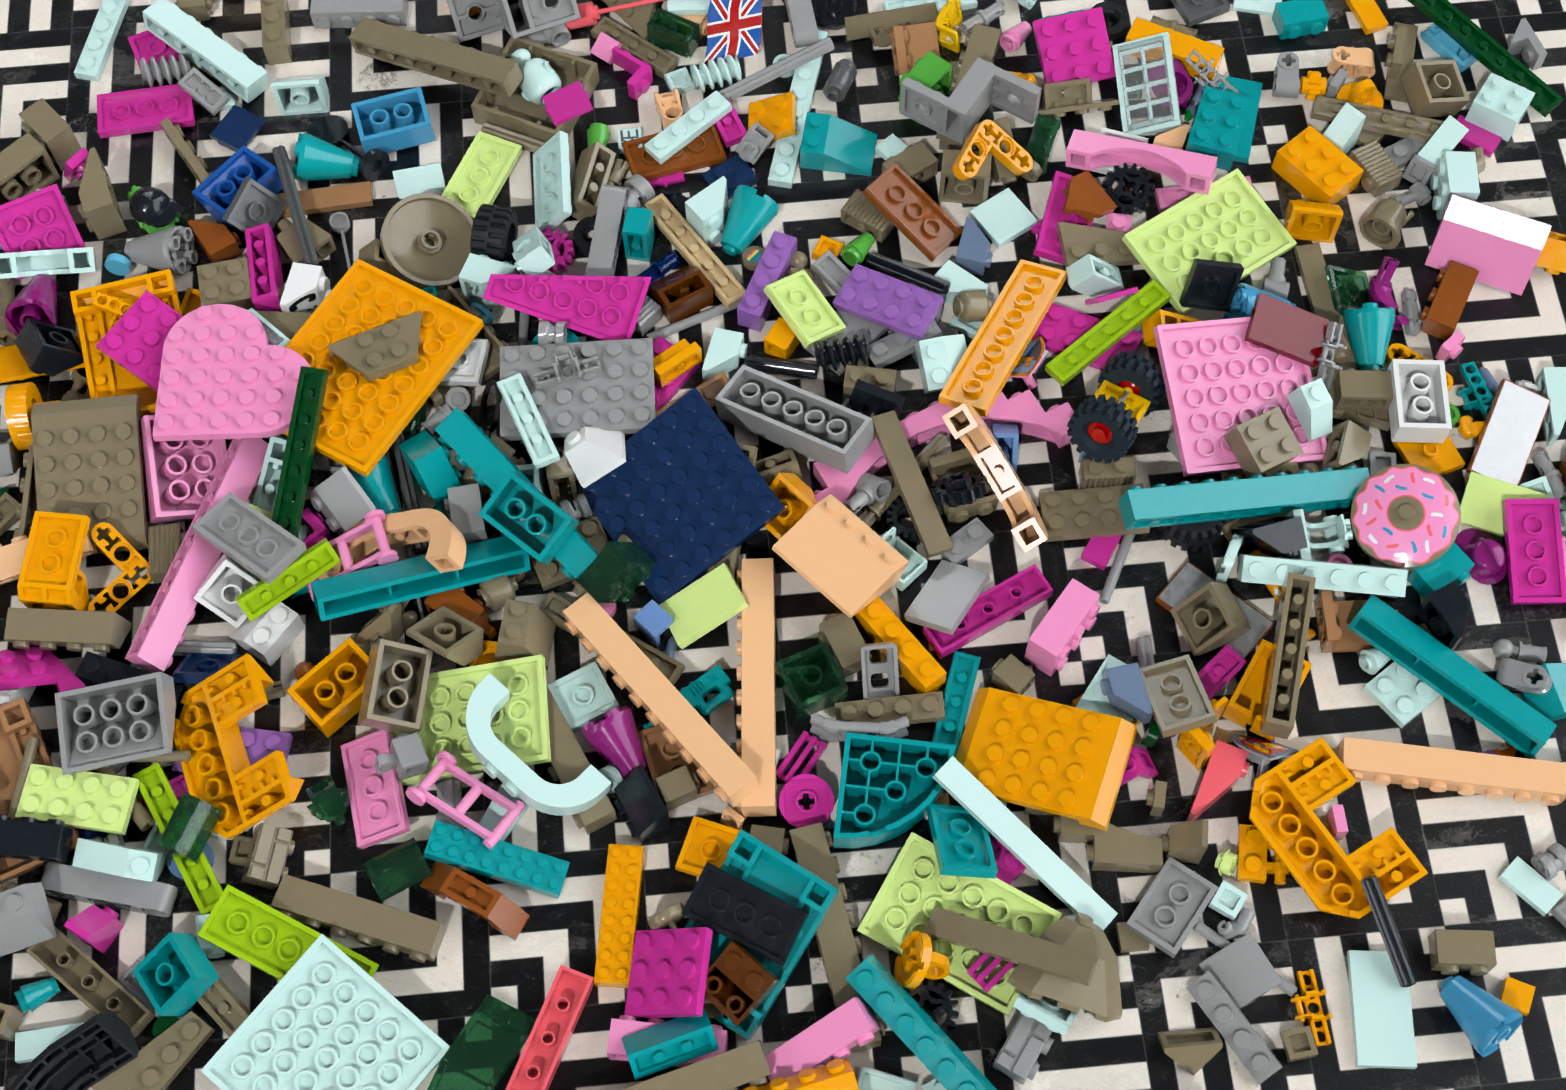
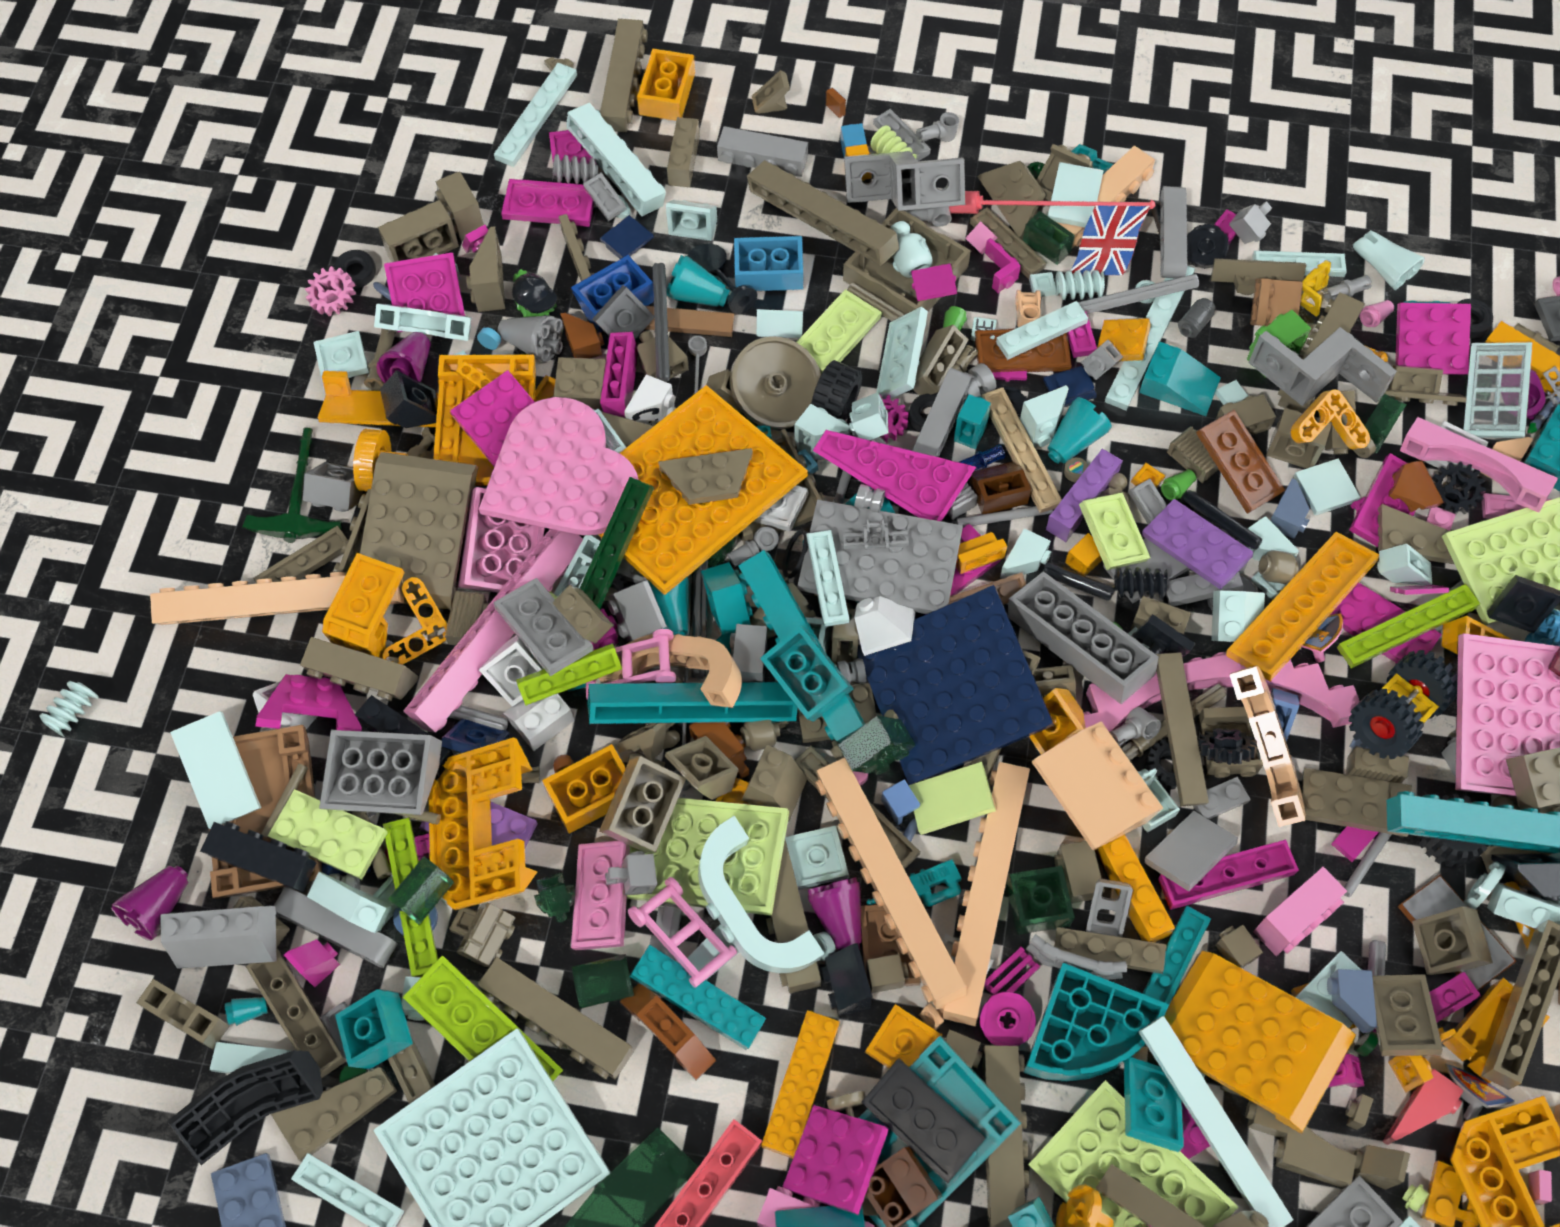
camera: 15 degrees right, 0 degrees up
(287, 515) = (582, 614): none -> dark tan brick

